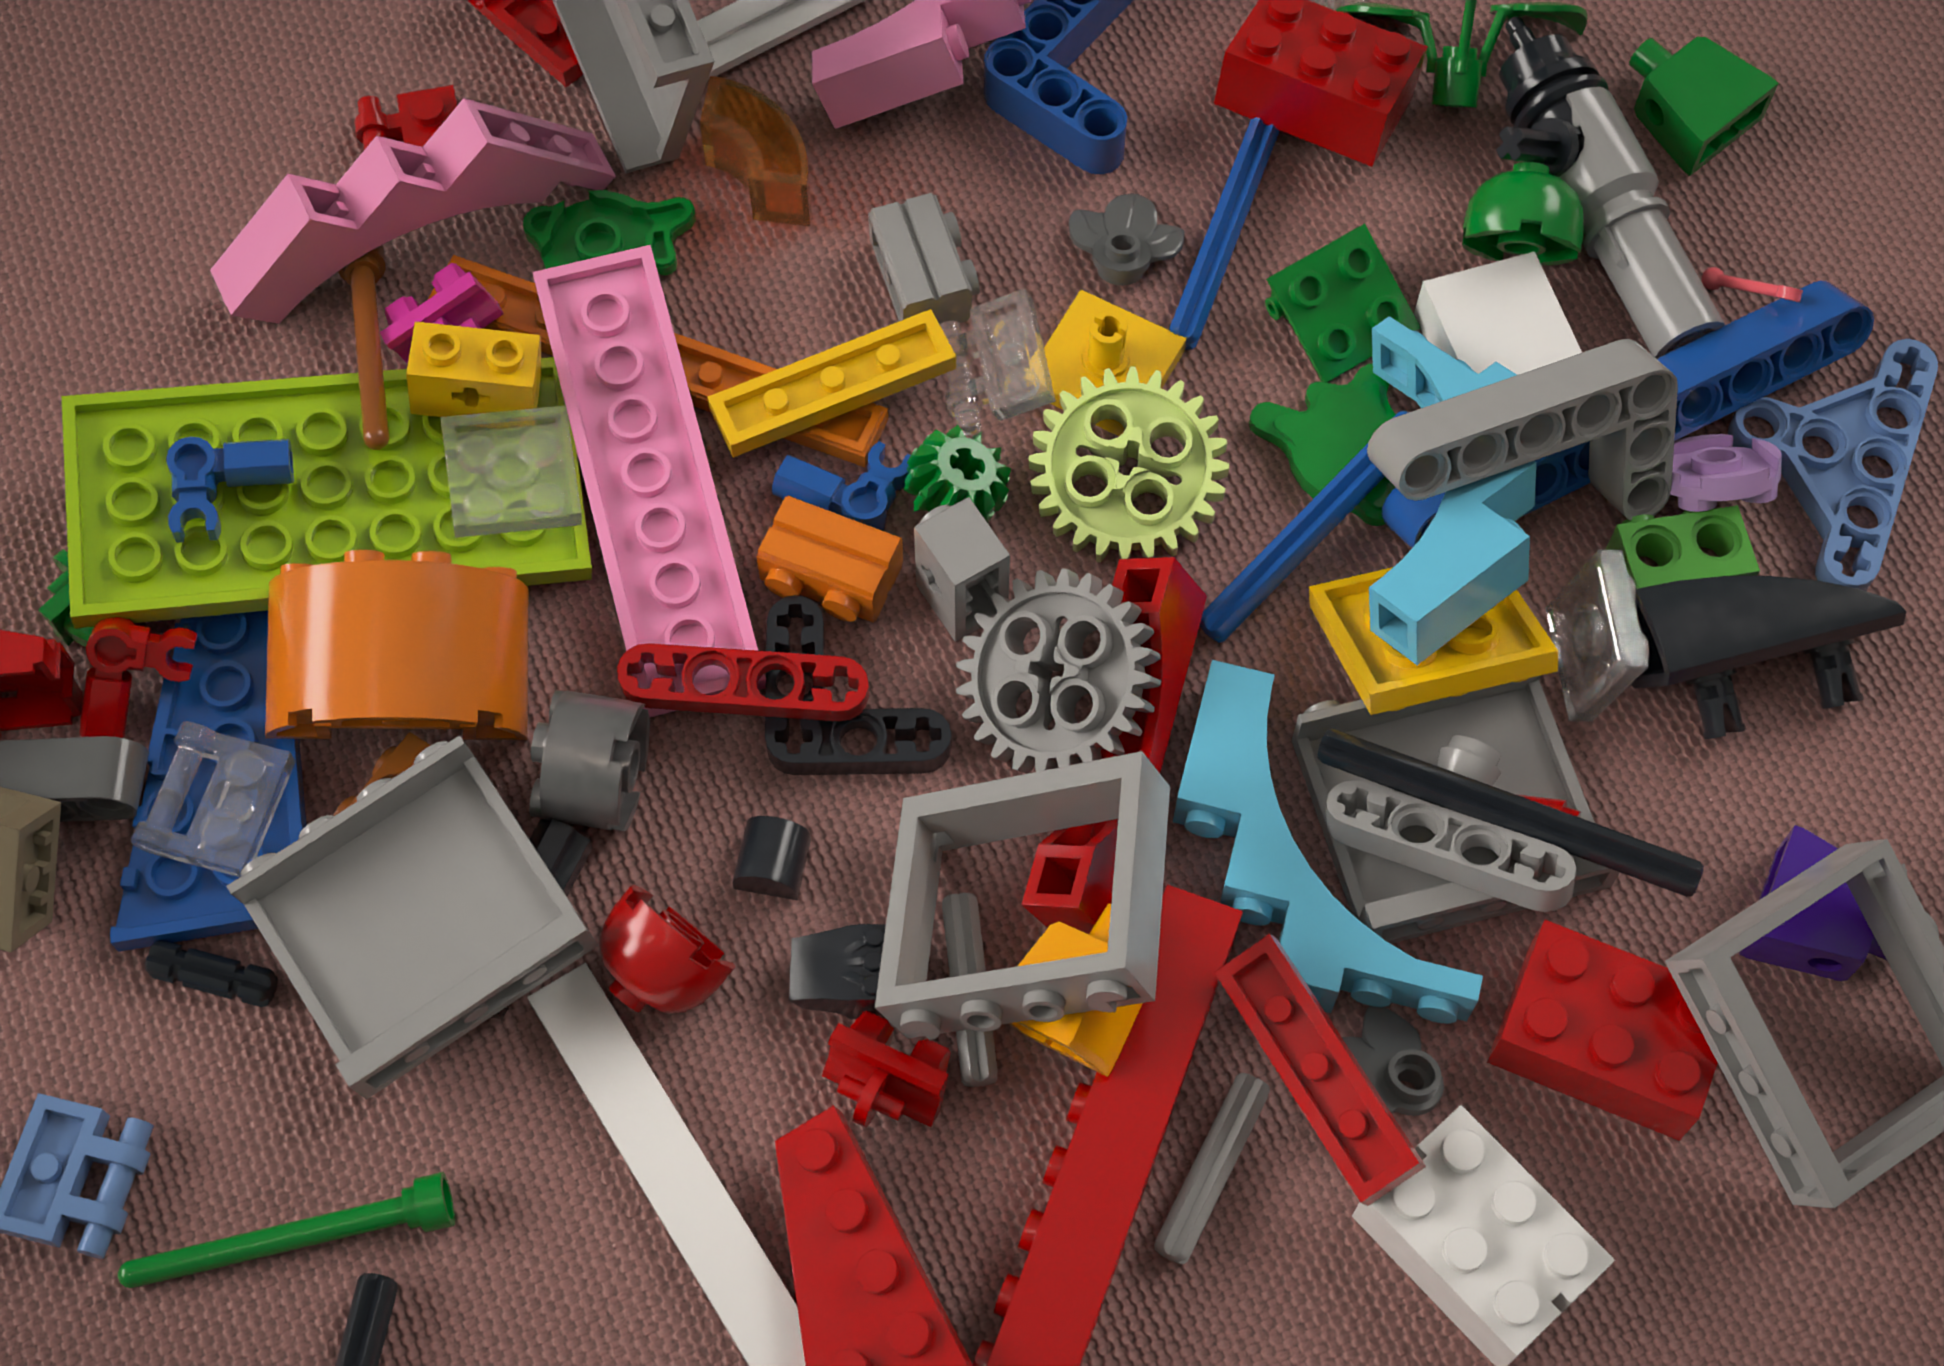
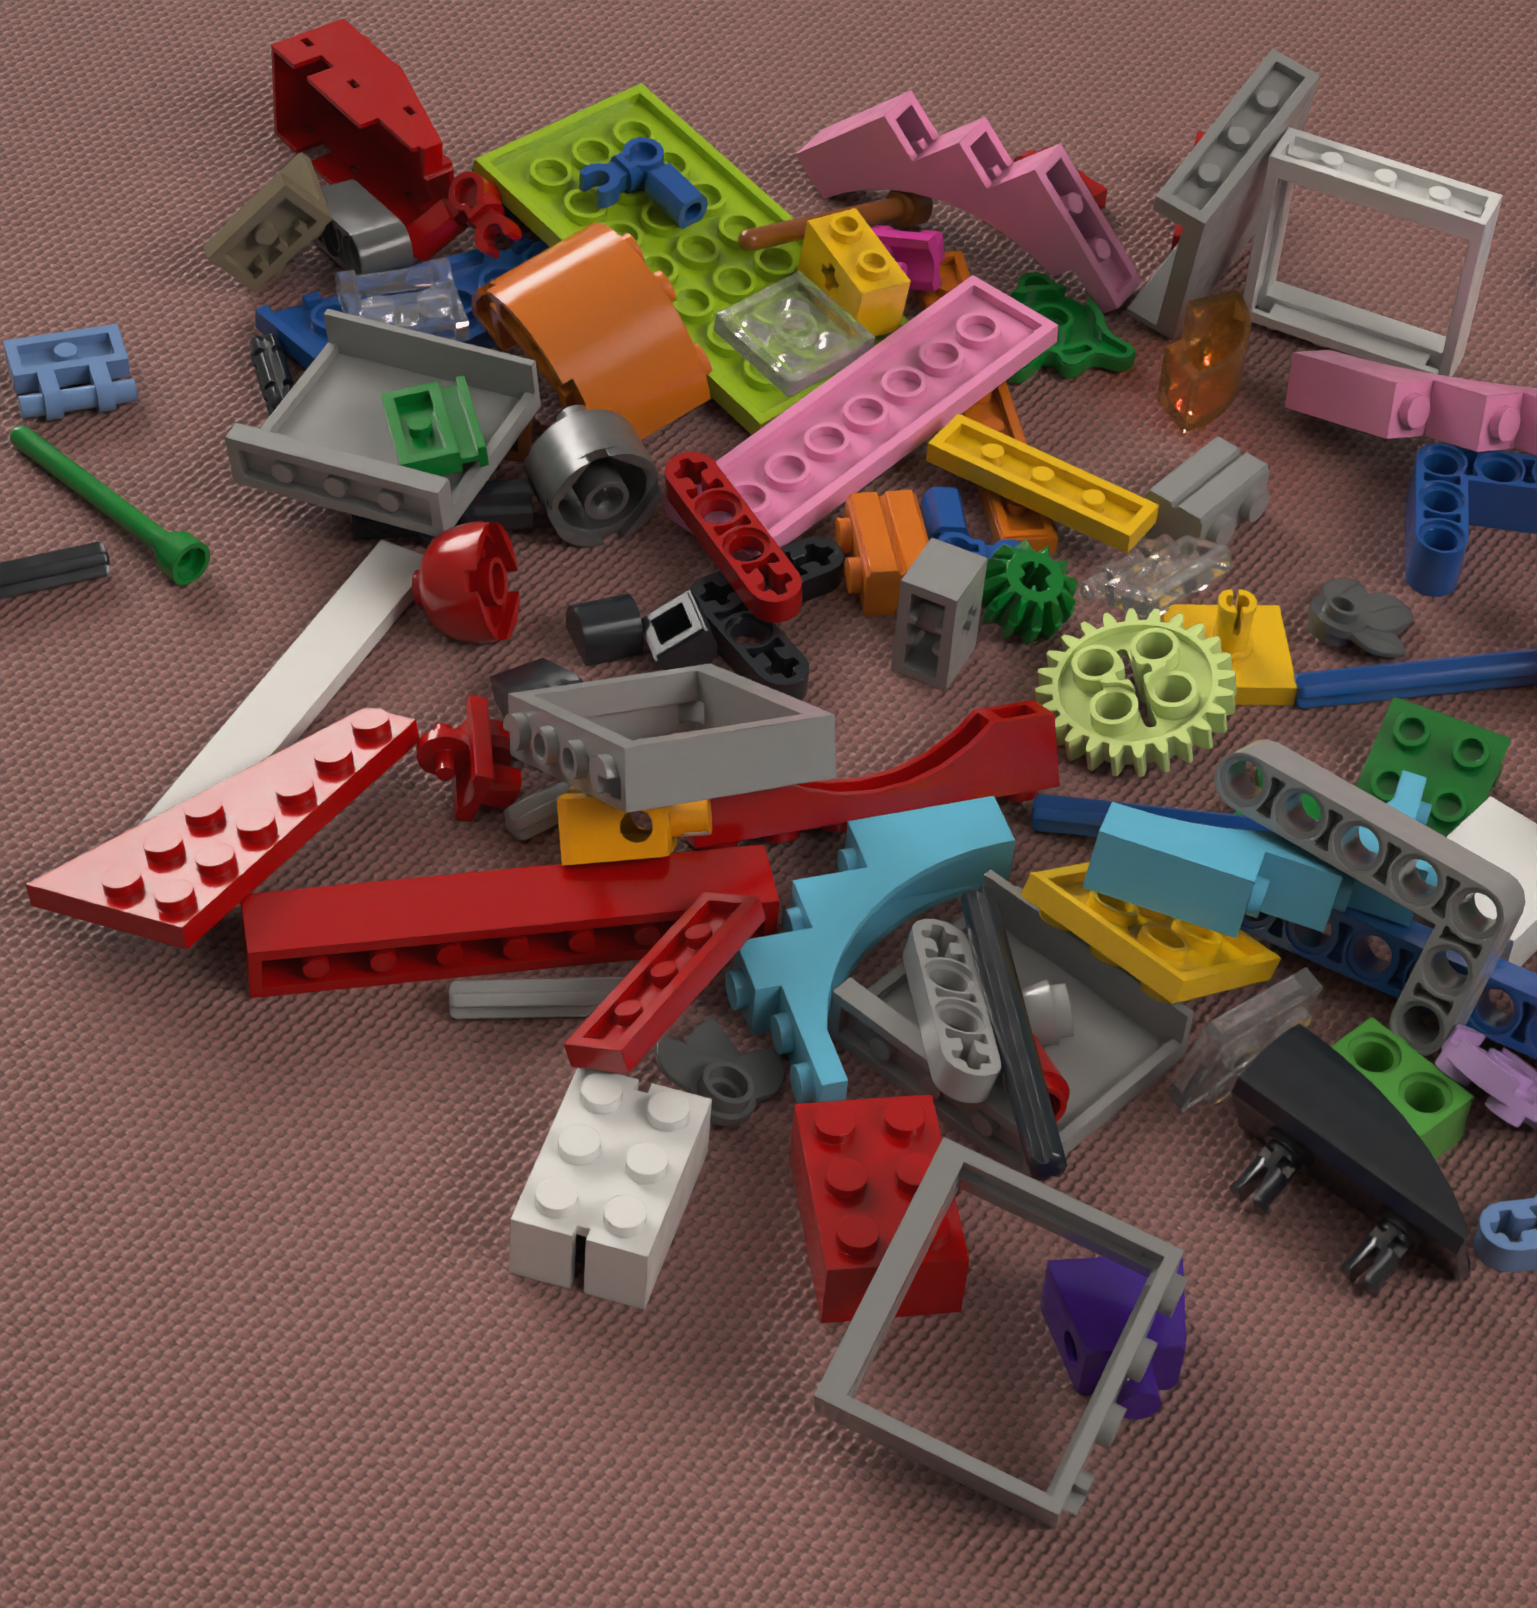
camera: 55 degrees right, 20 degrees down
(467, 878) = (434, 427): none -> green plate
(828, 799) = (680, 634): none -> black brick
(1111, 675) = (906, 705): light grey gear -> none

